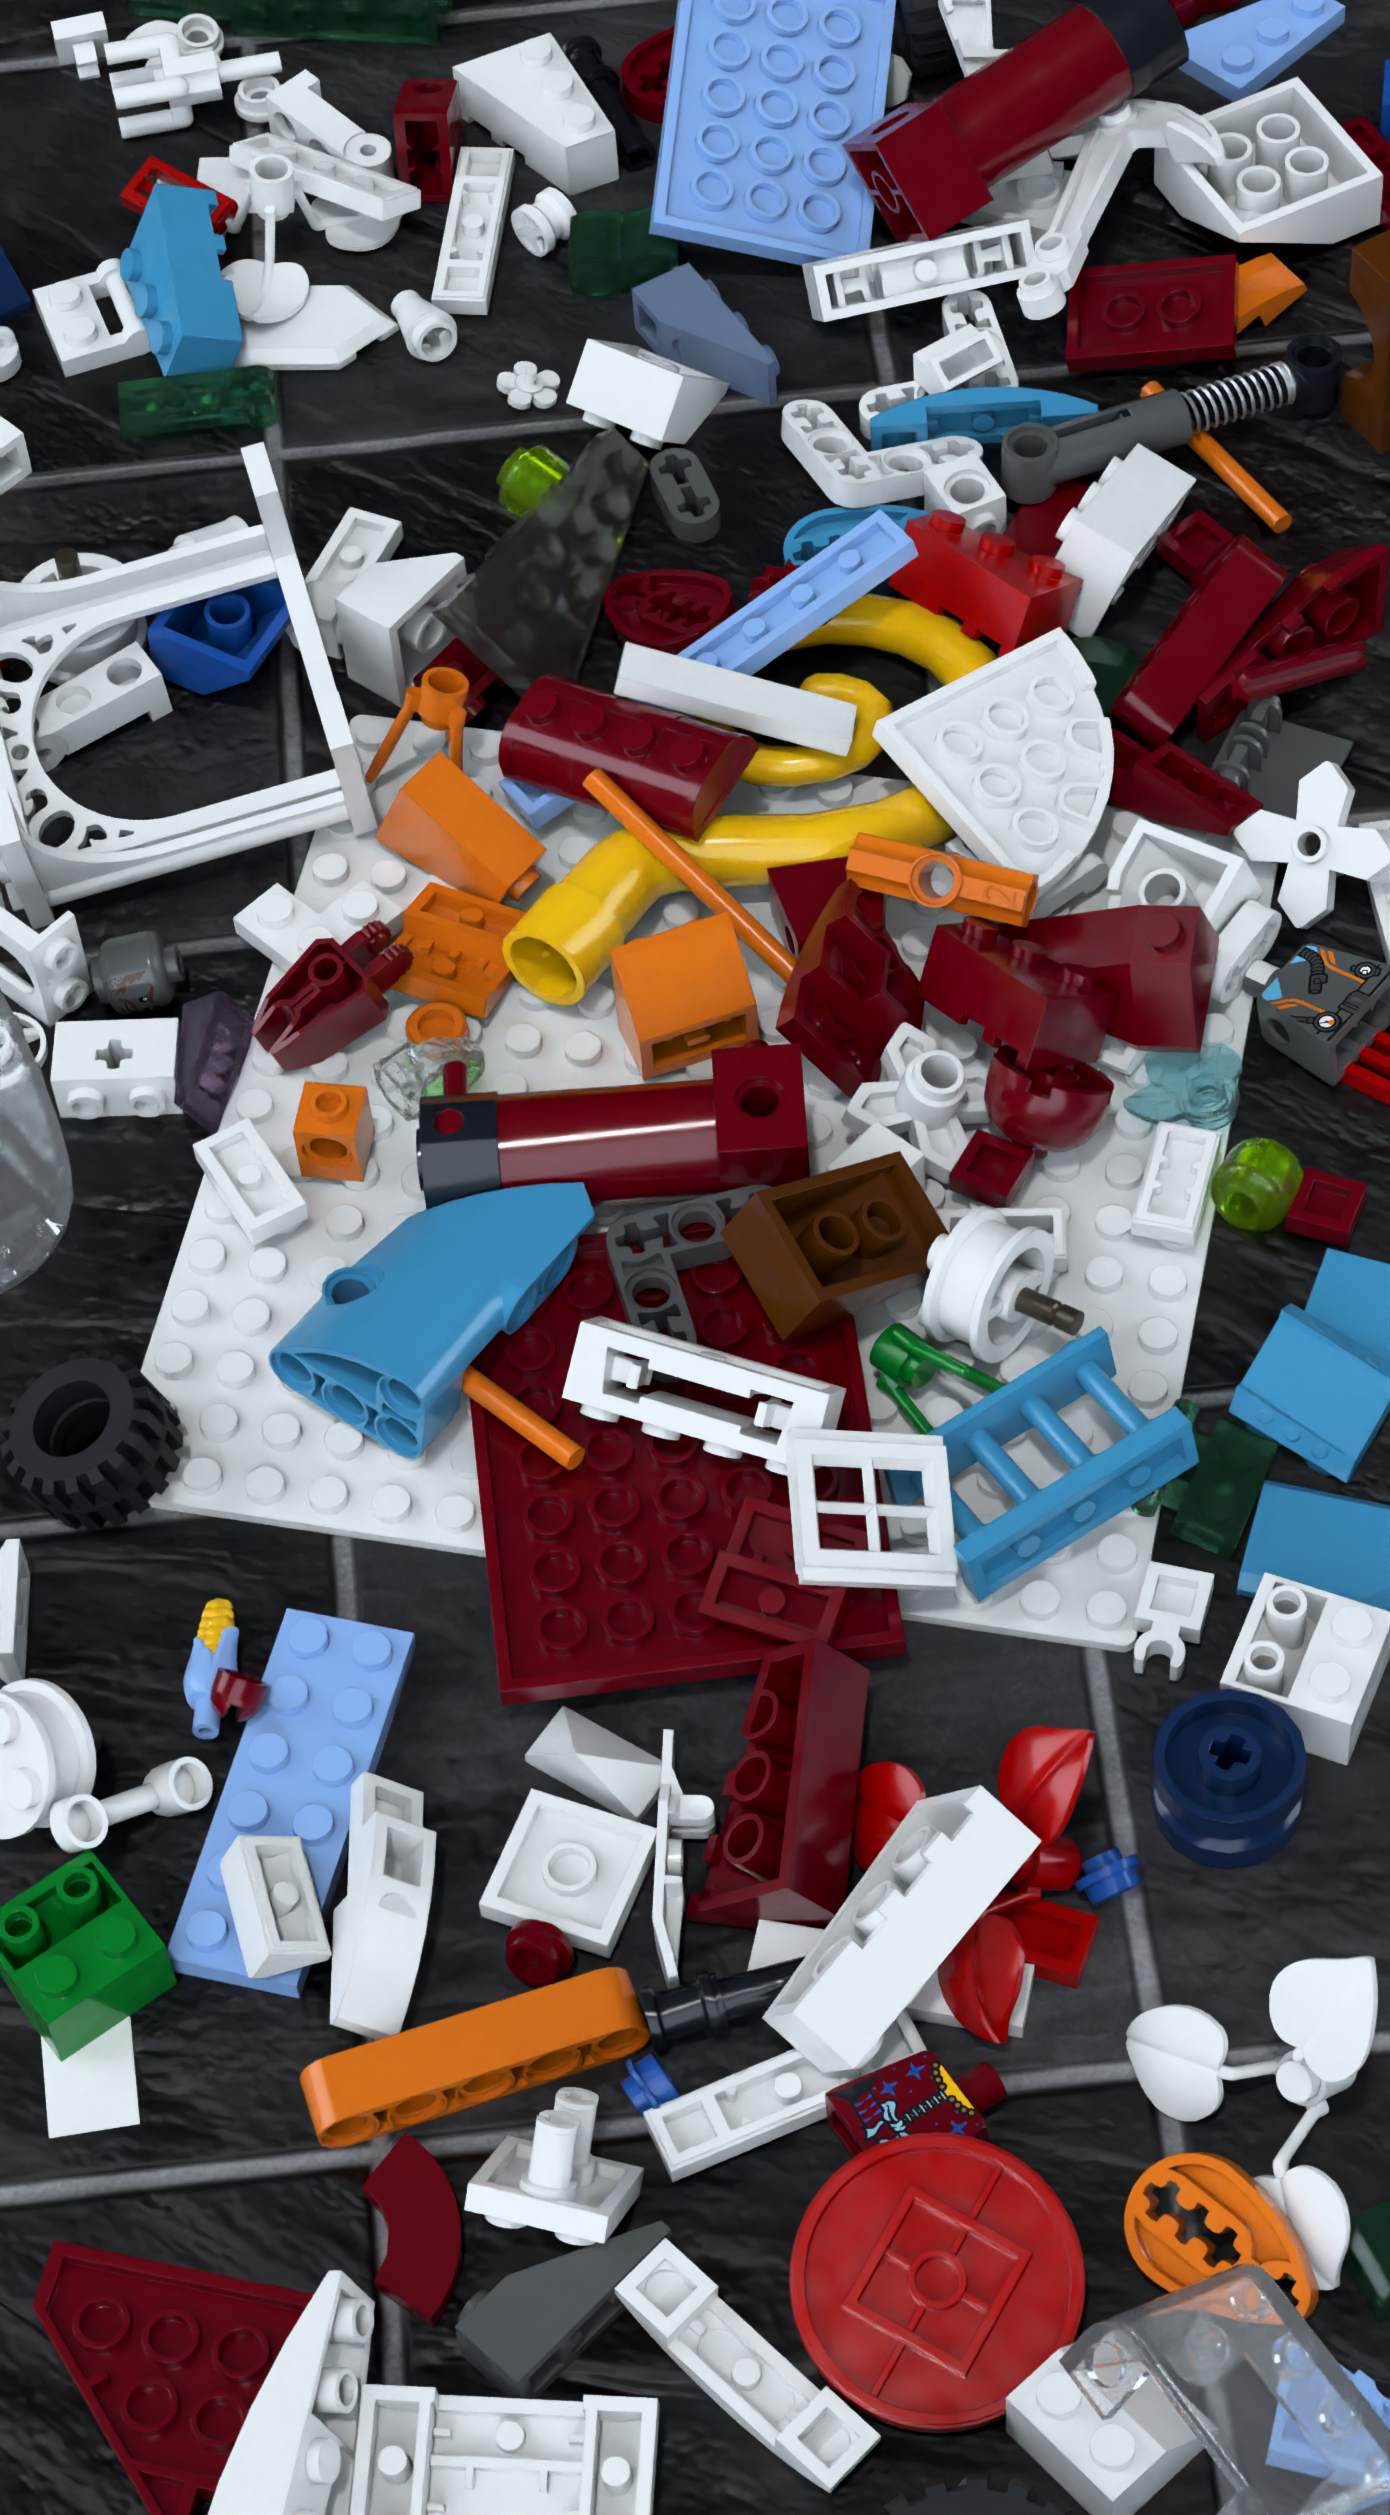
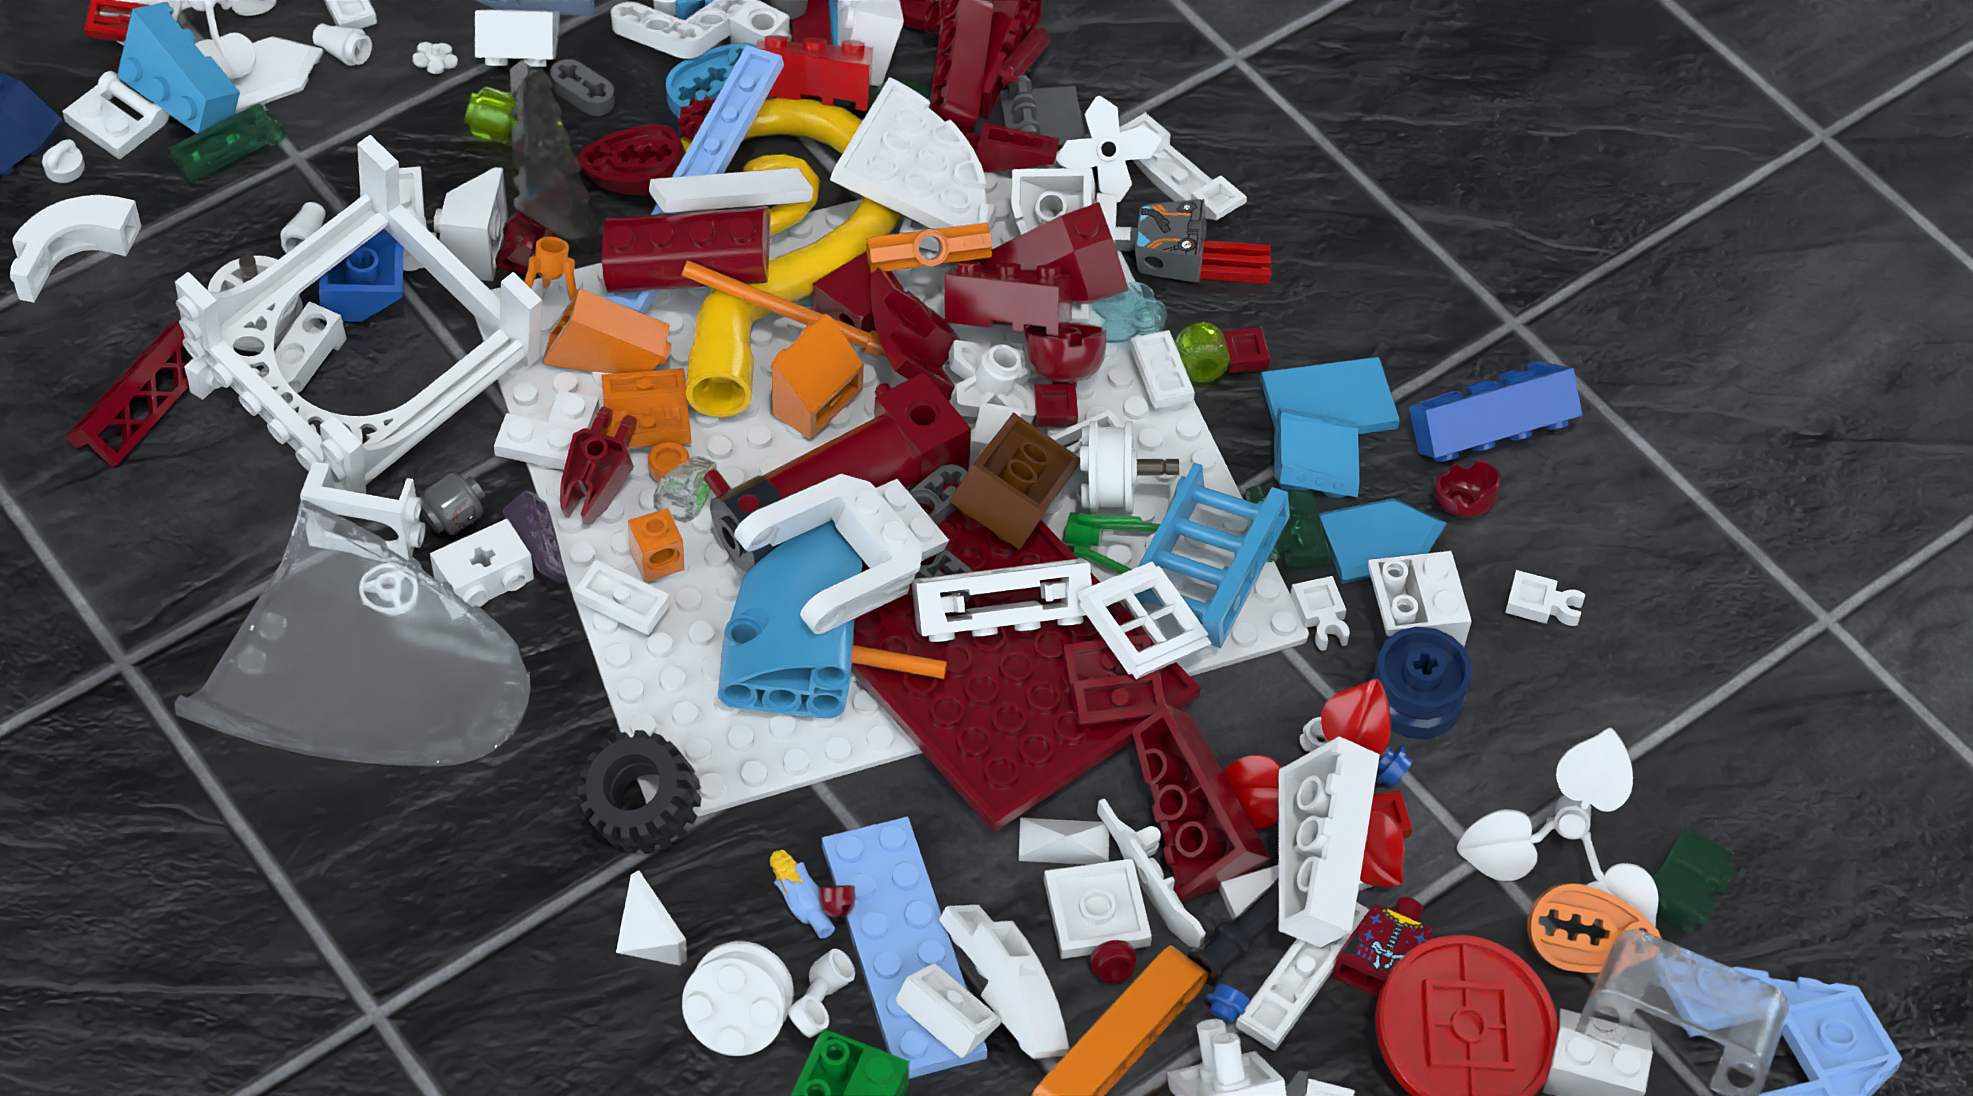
camera: 40 degrees left, 0 degrees up
(601, 1229) = (879, 524): none -> white plate

